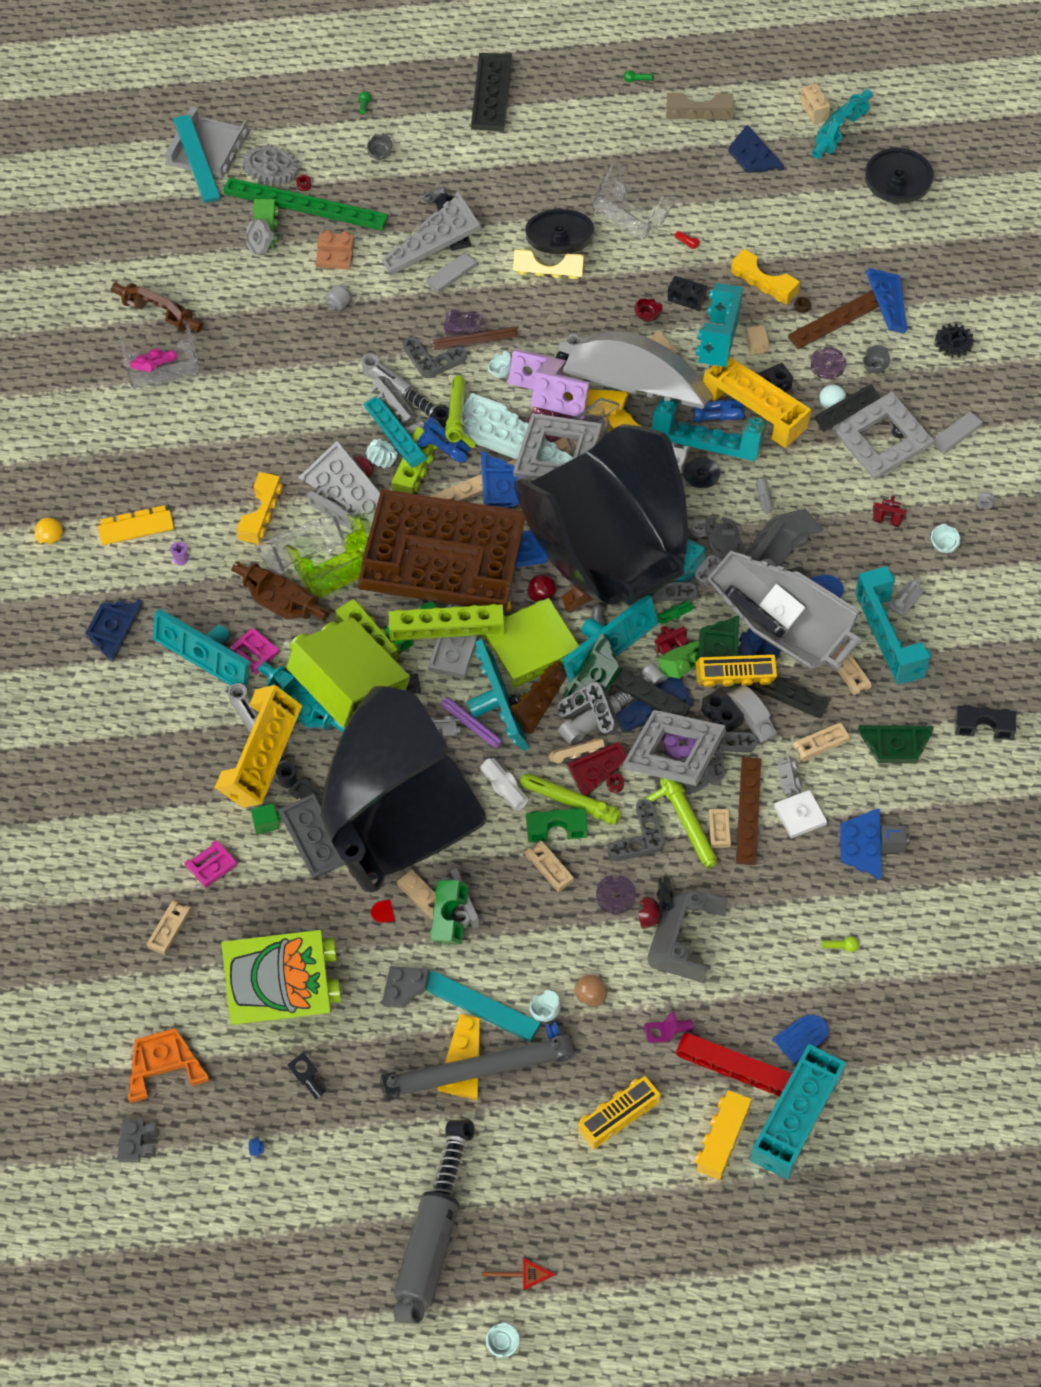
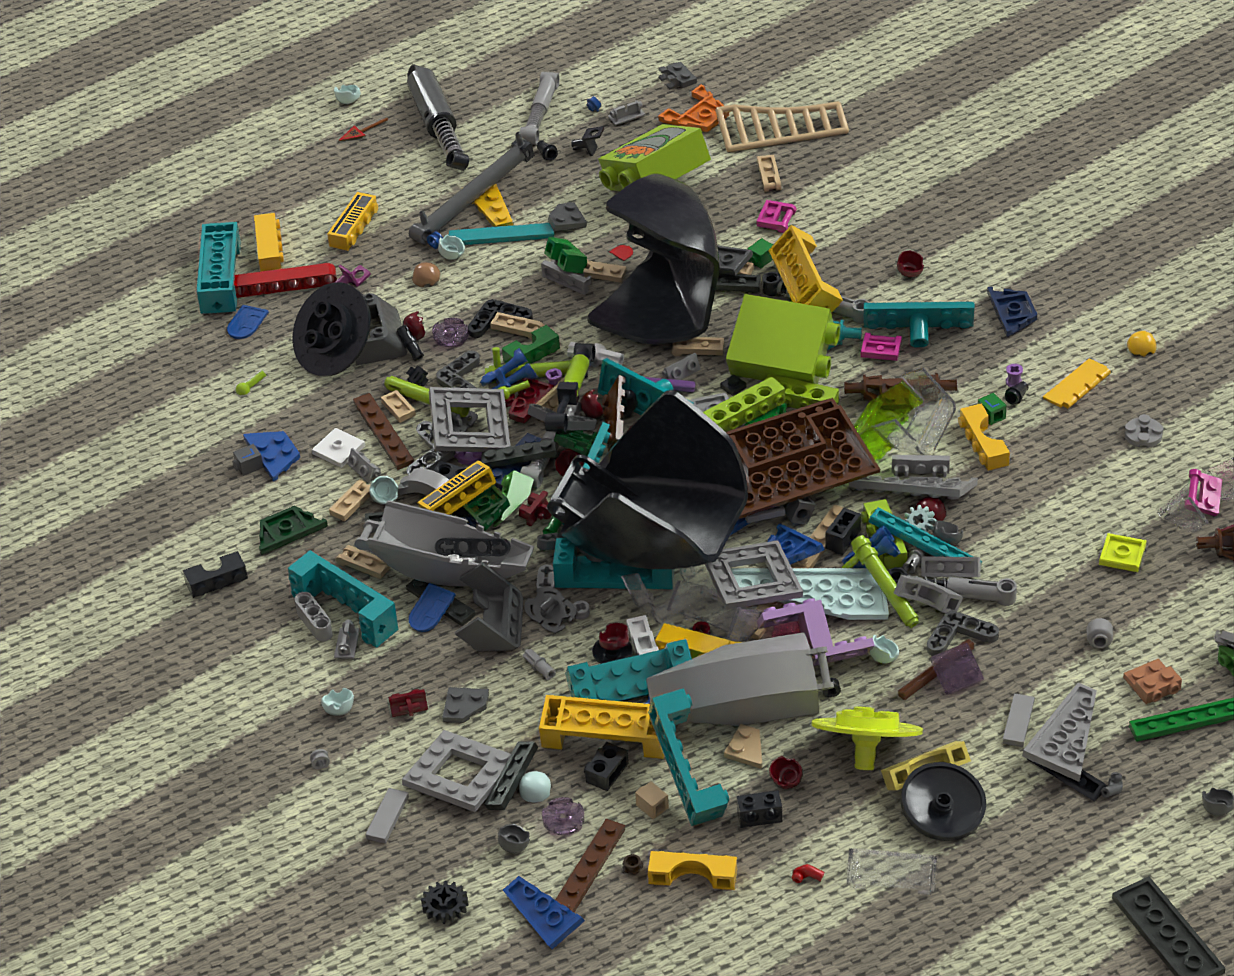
camera: 150 degrees right, 15 degrees down
(99, 1005) = (771, 111): none -> tan bar
(131, 441) = (1143, 423): none -> light grey plate
(151, 722) = (910, 264): none -> dark red hair
(193, 537) = (1015, 393): none -> black cone
(227, 531) = (994, 407): none -> green brick
(234, 1110) = (621, 115): none -> light grey hinge
(256, 355) = (1122, 552): none -> neon yellow plate
(277, 1213) = (548, 83): none -> light grey piece
(354, 1100) = (547, 150): none -> black cone
(367, 432) = (947, 532): none -> dark grey hair
(425, 383) = (928, 593): none -> light grey arch
(446, 475) = (843, 531): none -> black brick
(552, 721) = (590, 405): none -> dark red hair
(558, 898) = (489, 311): none -> black beam
(562, 775) = (554, 376): none -> medium lavender bush
(572, 715) = (569, 389): none -> black piece
(586, 308) = (867, 730): none -> neon yellow piece
(587, 785) = (499, 374): none -> blue piece
(617, 782) = (513, 389): none -> lime bar
(682, 848) = (417, 376): none -> black gear
(698, 467) = (615, 637): none -> dark red hair
(738, 927) = (331, 329): none -> black piece
(791, 728) = (383, 489): none -> light aqua hair
(843, 494) = (463, 703): none -> dark grey plate
(922, 625) = (313, 616): none -> light grey beam

